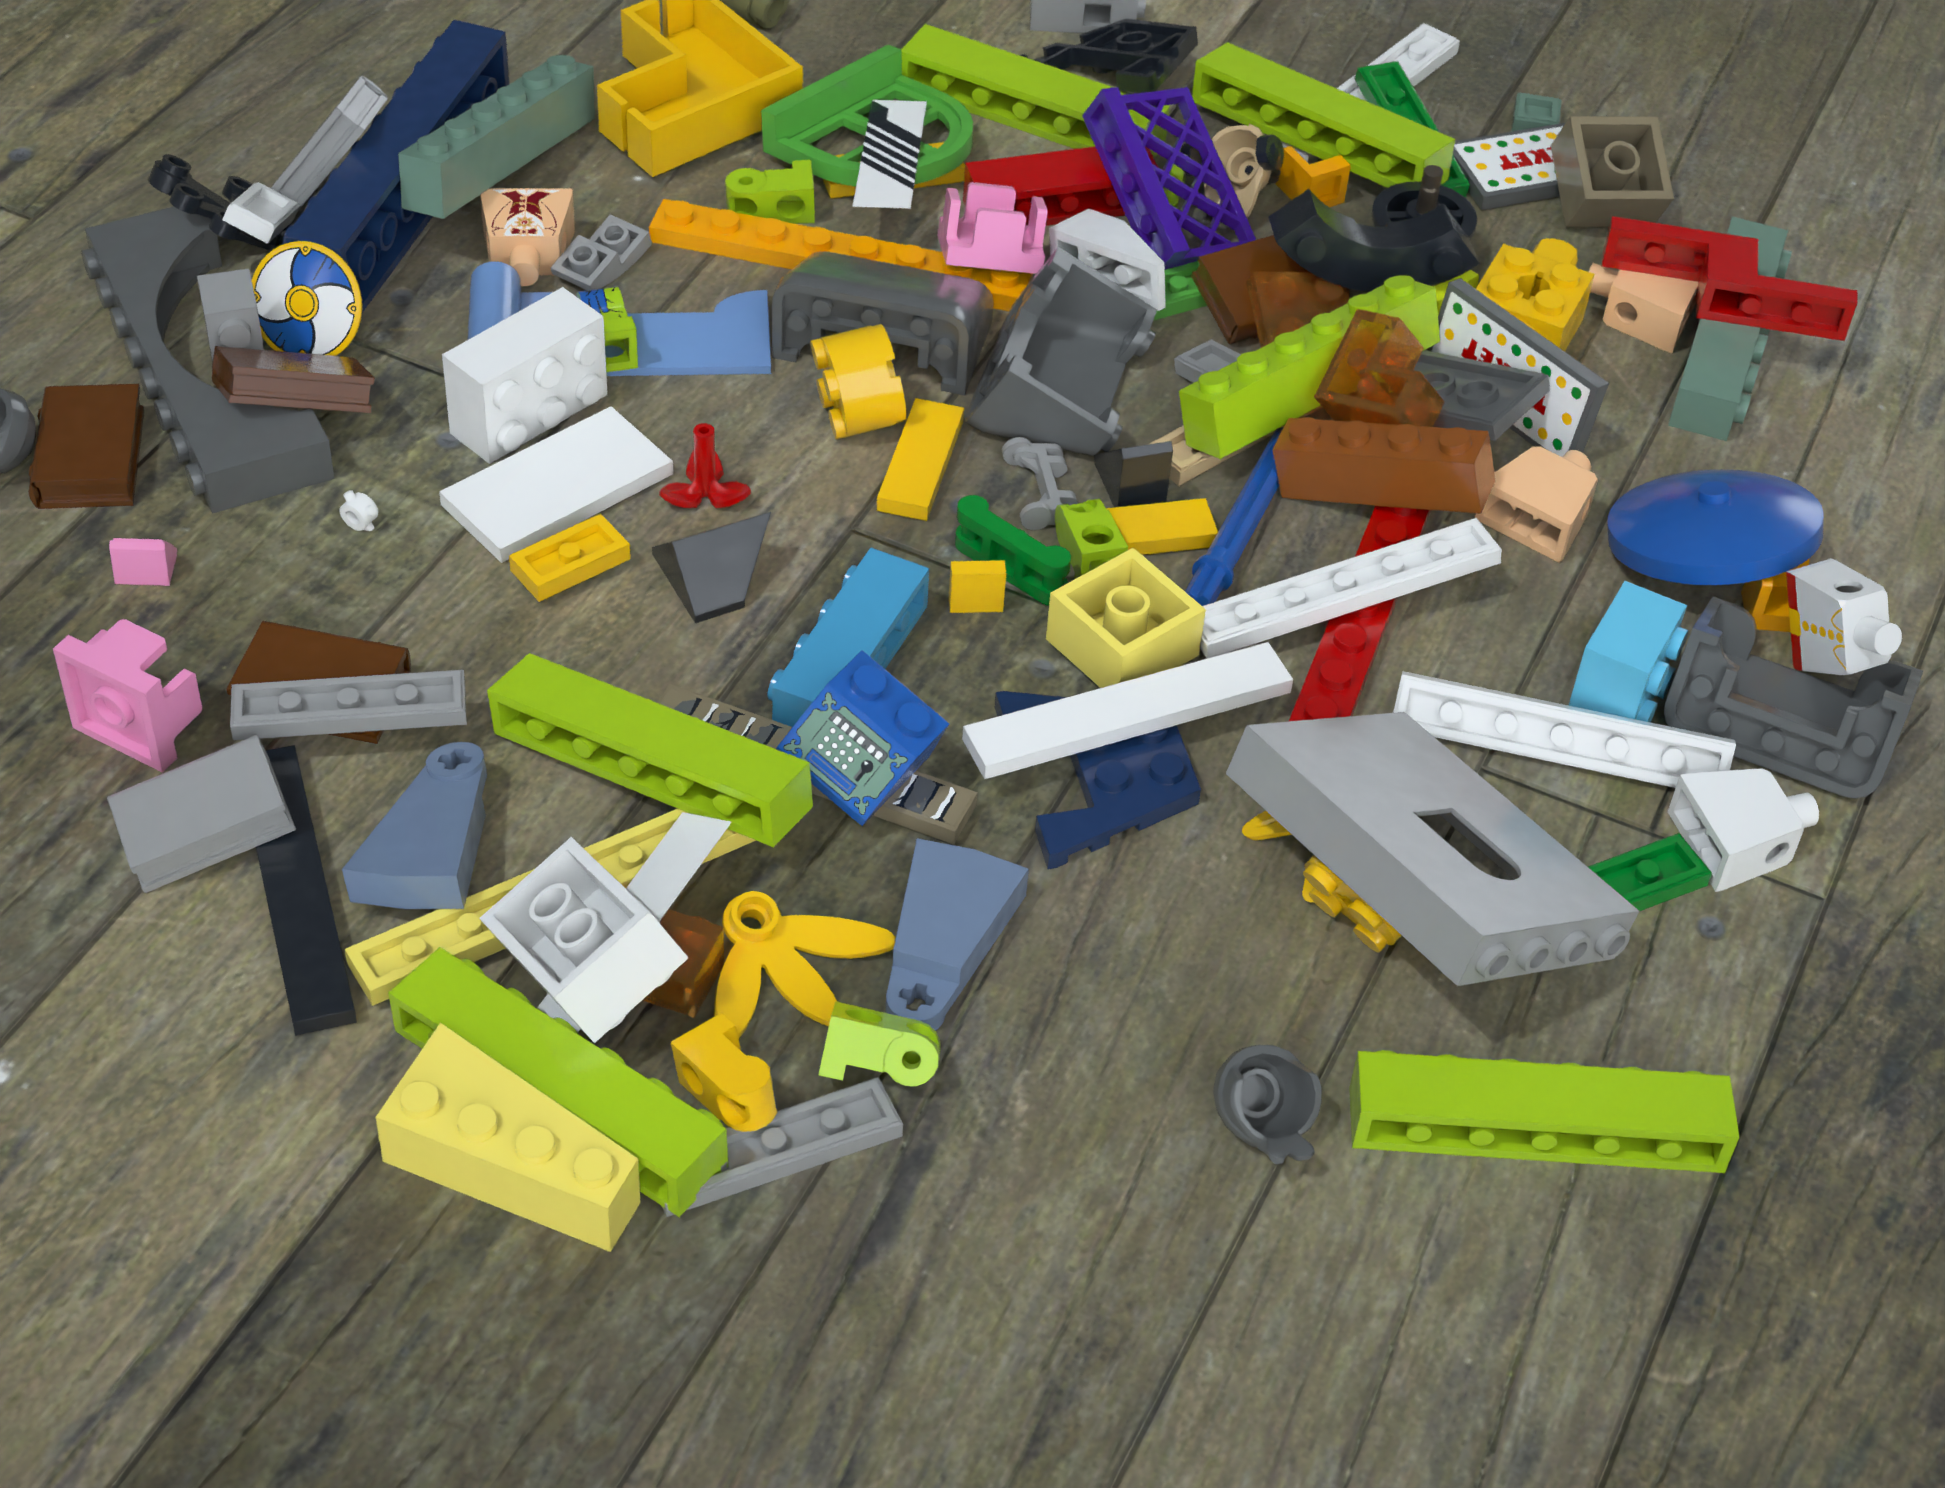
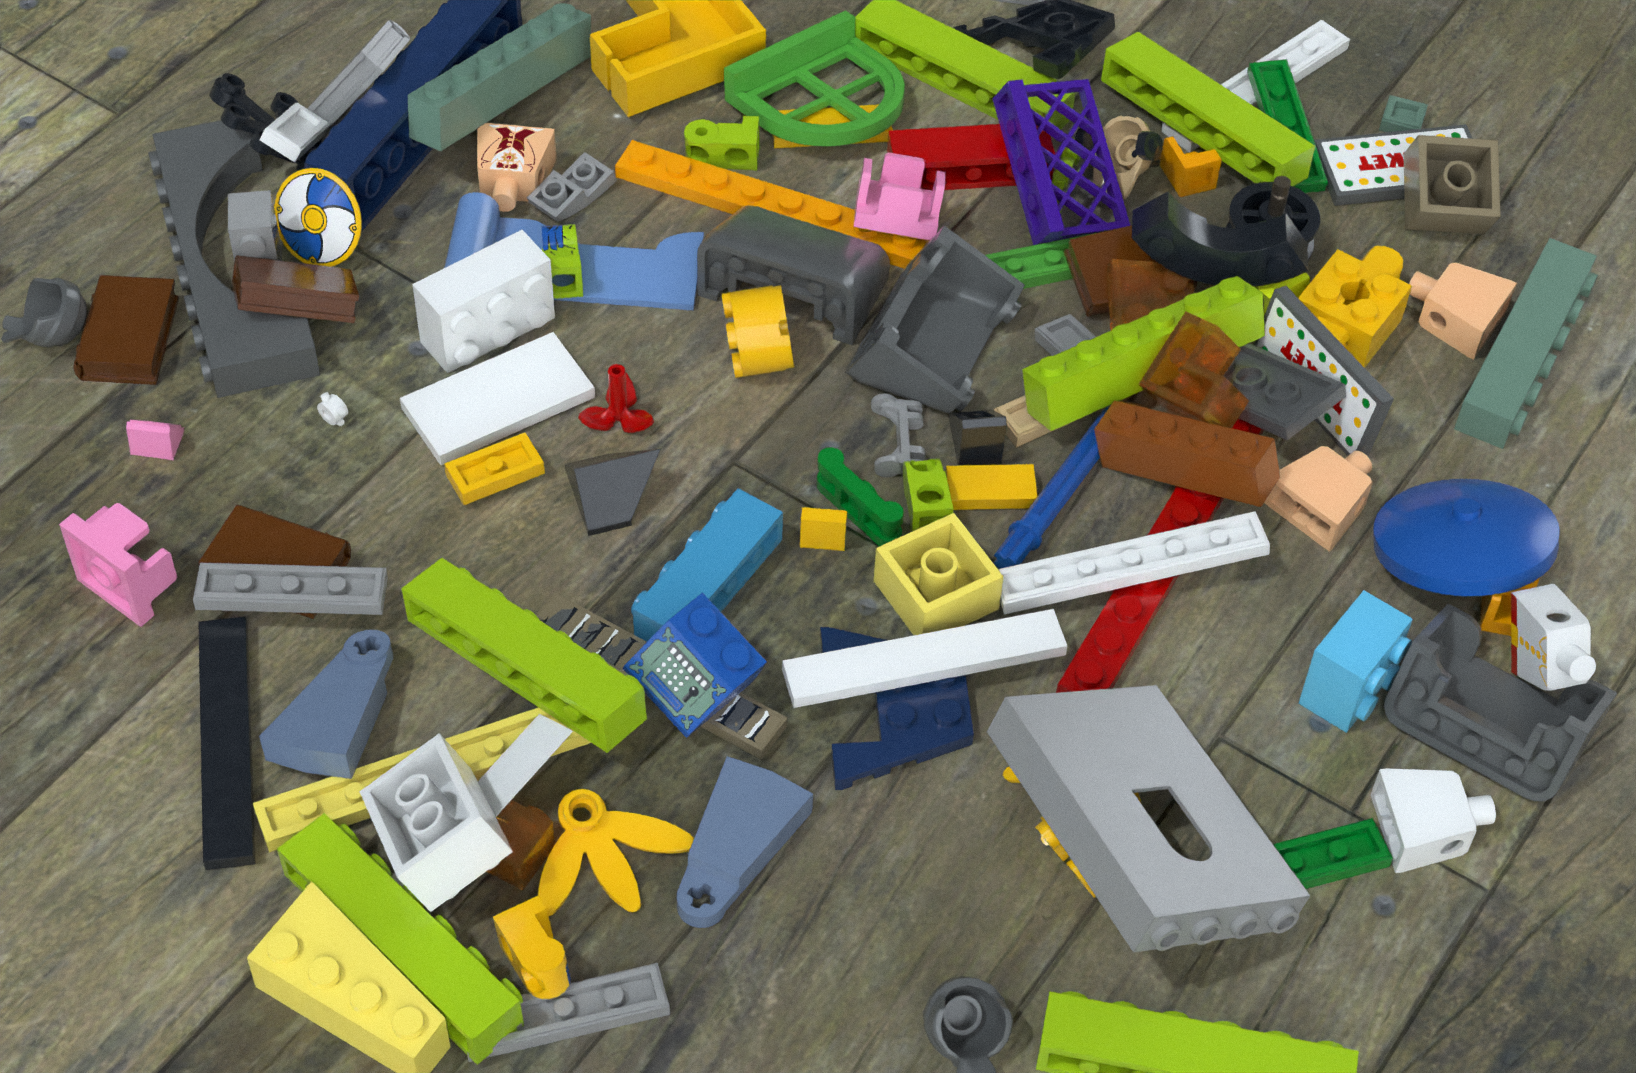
camera: 10 degrees right, 5 degrees up
(200, 813) = (160, 671): light grey piece -> none
(879, 1043) = (661, 936): lime leg -> none
(890, 154) = (826, 117): white sticker -> none
(920, 459) = (801, 403): yellow tile -> none
(1113, 251) = (994, 228): white slope -> none
(1559, 731) = (1288, 714): white tile -> none
(1729, 278) = (1527, 301): red bracket -> none

